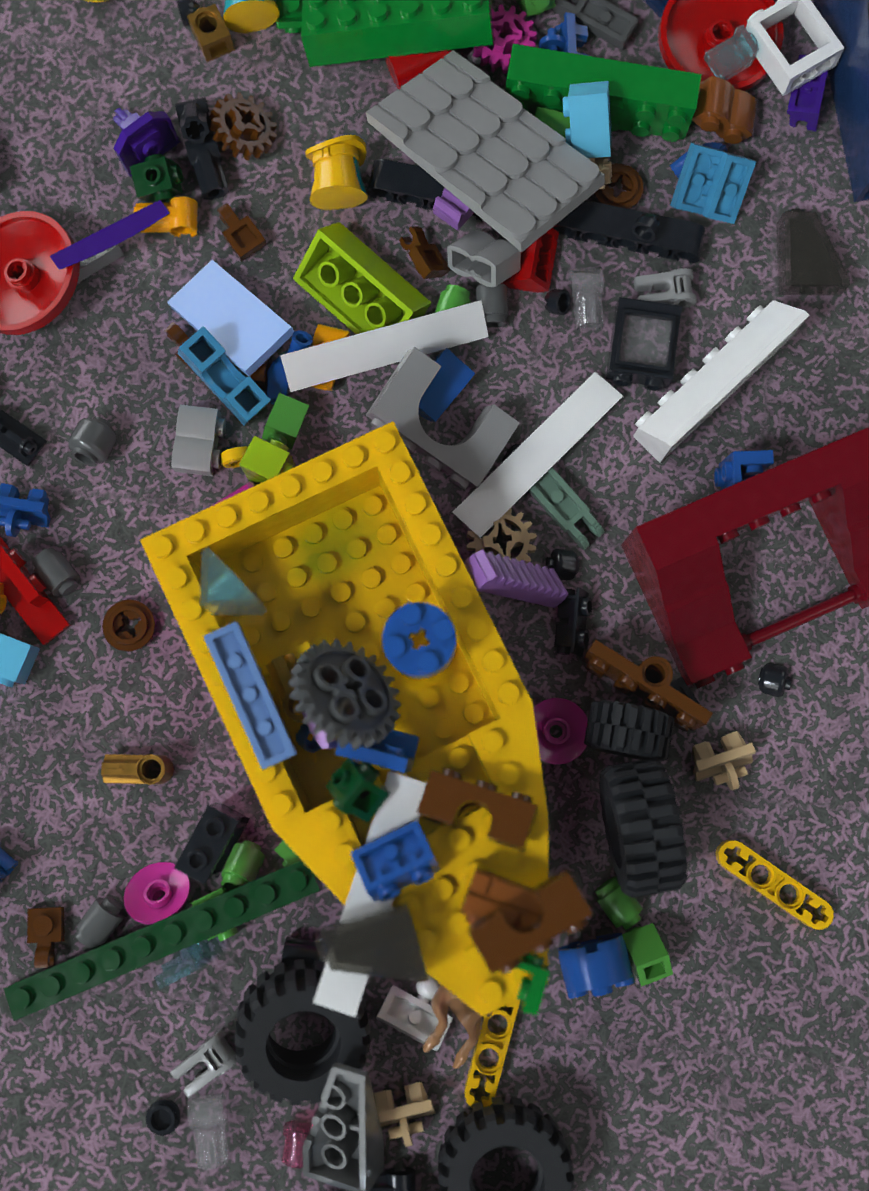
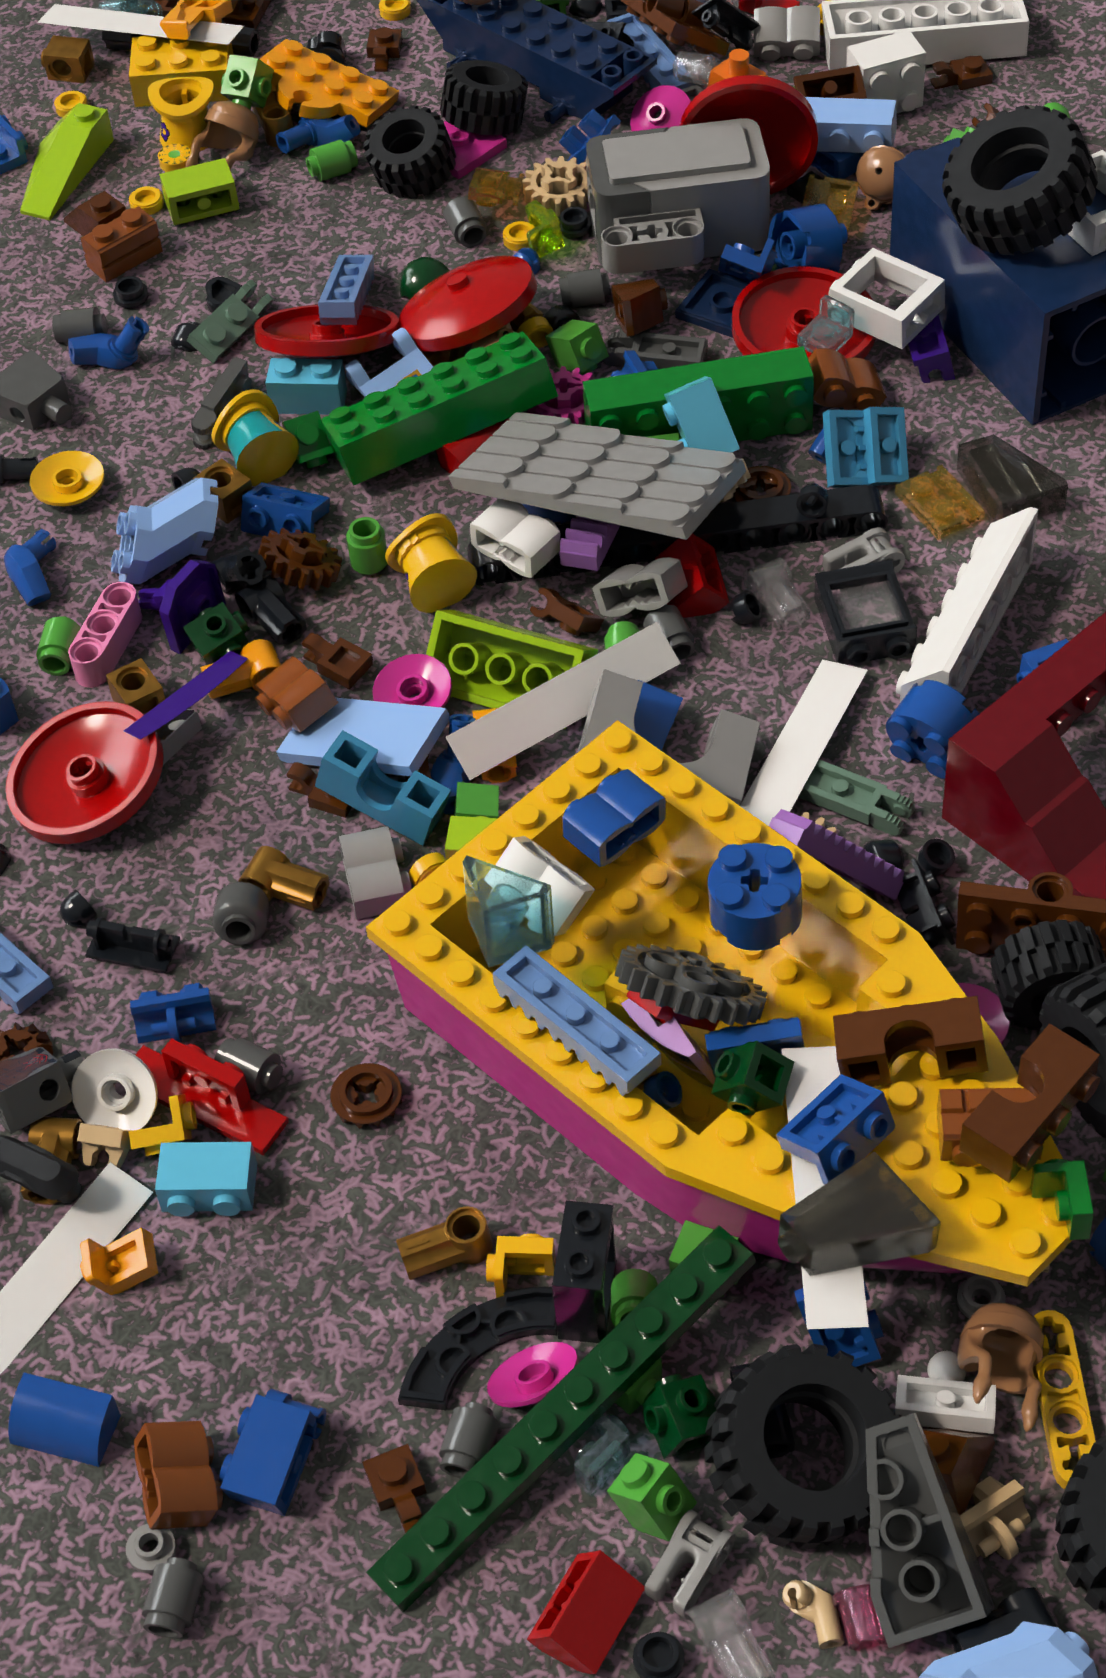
camera: 15 degrees left, 30 degrees down
(37, 51) = (24, 569): none -> blue arm
(41, 139) = (55, 643): none -> bright green brick
(79, 128) = (105, 634): none -> bright pink beam
(83, 220) = (135, 686): none -> pearl gold brick
(127, 841) = (470, 1336): none -> black tile
(128, 1071) = (586, 1612): none -> red brick
(129, 418) = (284, 880): none -> pearl gold piece
(148, 62) = (165, 531): none -> light blue brick
(189, 798) = (520, 1255): none -> yellow bracket
(193, 260) = (294, 695): none -> dark orange brick
(196, 1015) = (651, 1496): none -> bright green brick
(239, 963) = (679, 1414): none -> dark green brick
(249, 68) = (277, 507): none -> blue bracket
(270, 564) = (568, 888): none -> white brick
(274, 1119) = (817, 1608): none -> tan arm
(275, 272) = (413, 675): none -> dark pink dish
(296, 134) = (366, 546): none -> bright green brick
(347, 523) = (613, 817): none -> blue brick
(396, 1067) = (960, 1459): none -> reddish brown slope
(405, 180) = (515, 537): none -> white brick
(603, 579) = (937, 856): none -> black hinge
(645, 476) = (926, 722): none -> blue brick
(748, 253) = (939, 502): none -> clear yellow plate

